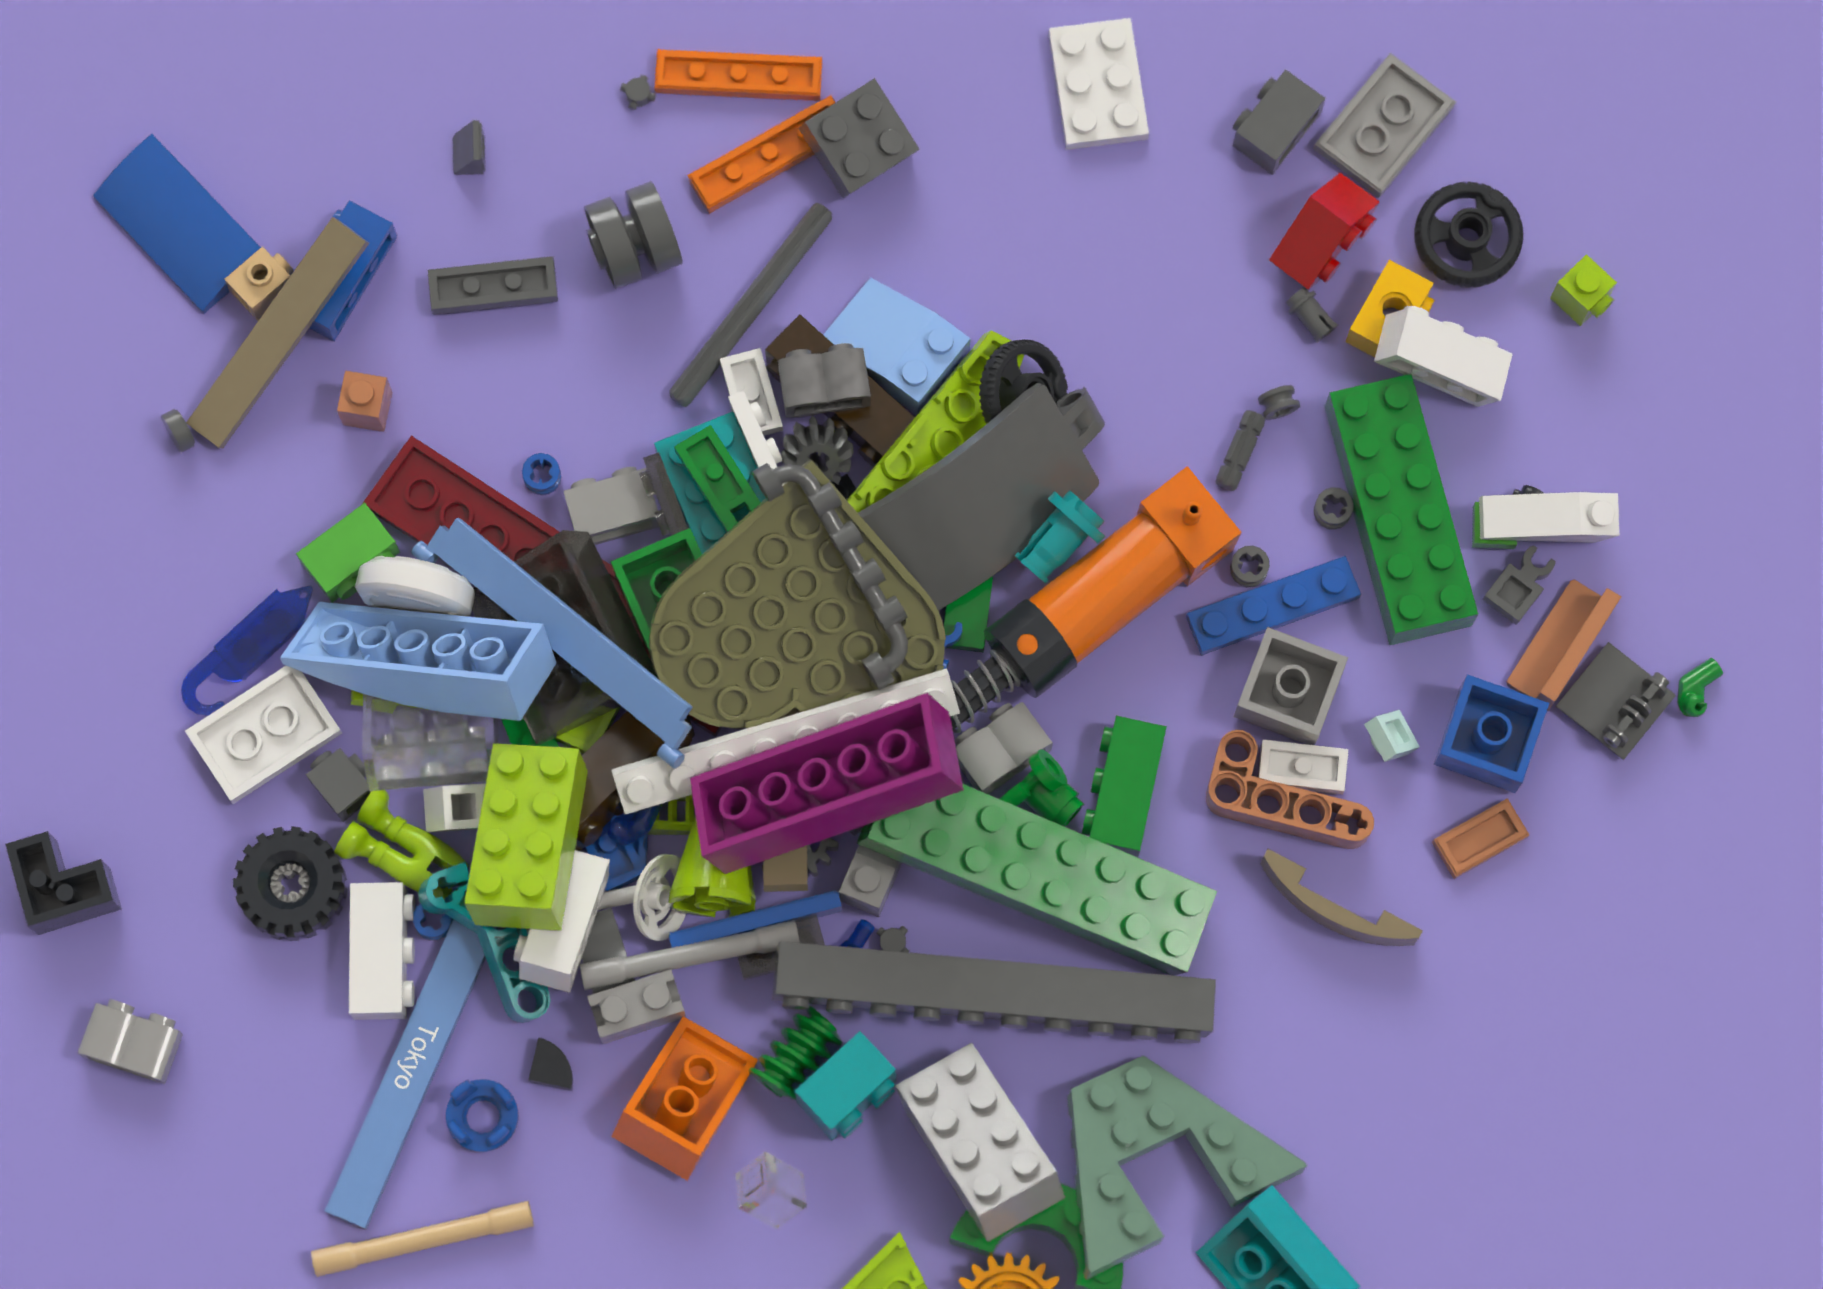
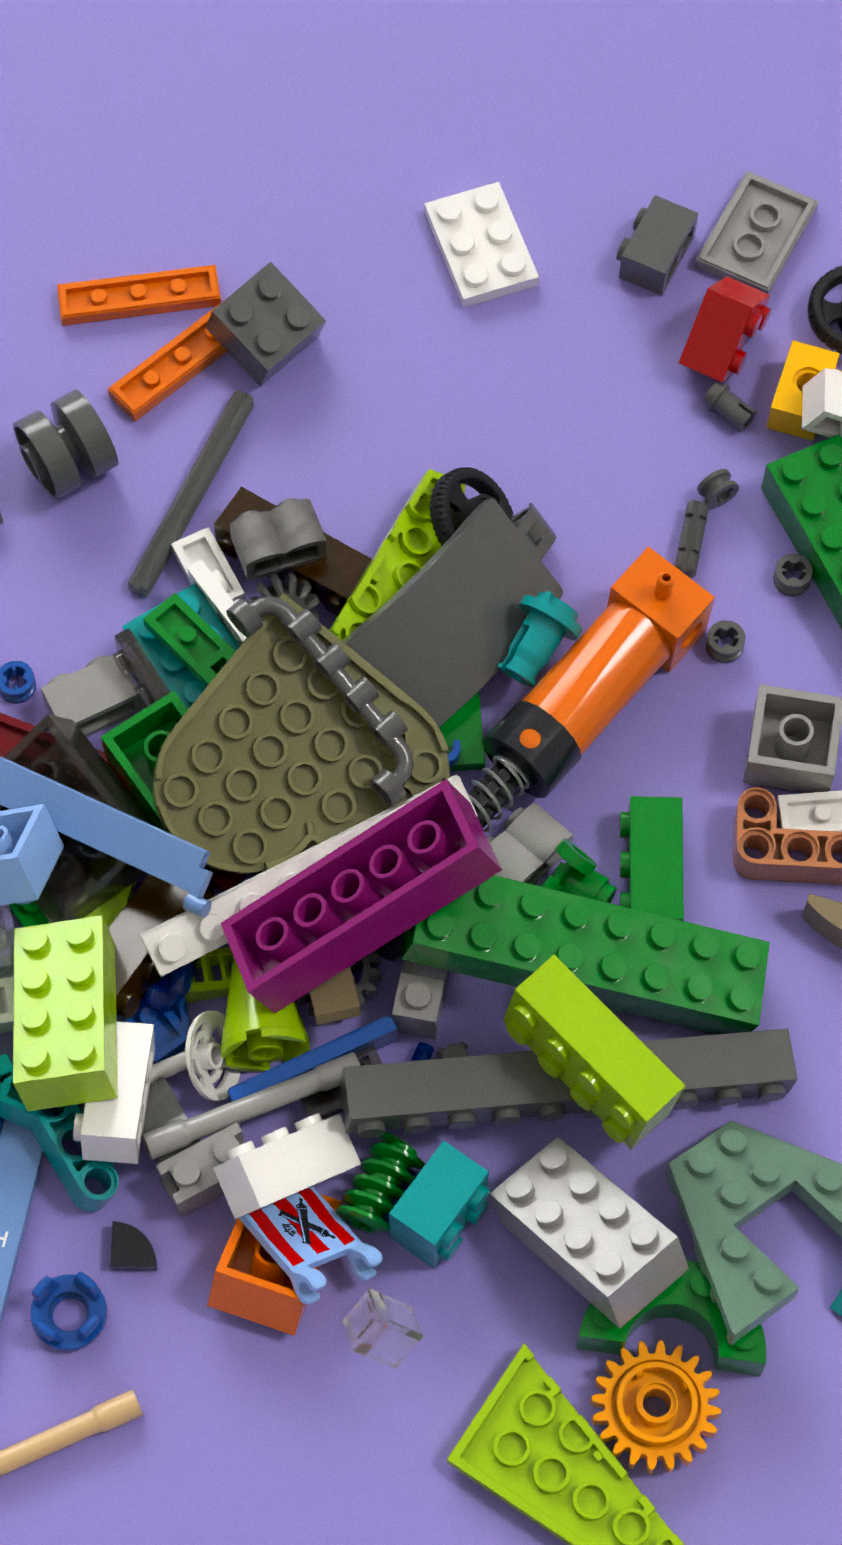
camera: 10 degrees left, 10 degrees down
(638, 92) = (46, 326): dark grey piece -> none
(709, 1020) = (285, 1163): none -> white brick
(714, 1088) = (306, 1233): none -> light blue flag
(903, 343) = (350, 496): light blue slope -> none
(1015, 976) = (592, 1053): none -> lime brick
(1273, 605) = (769, 664): blue plate -> none

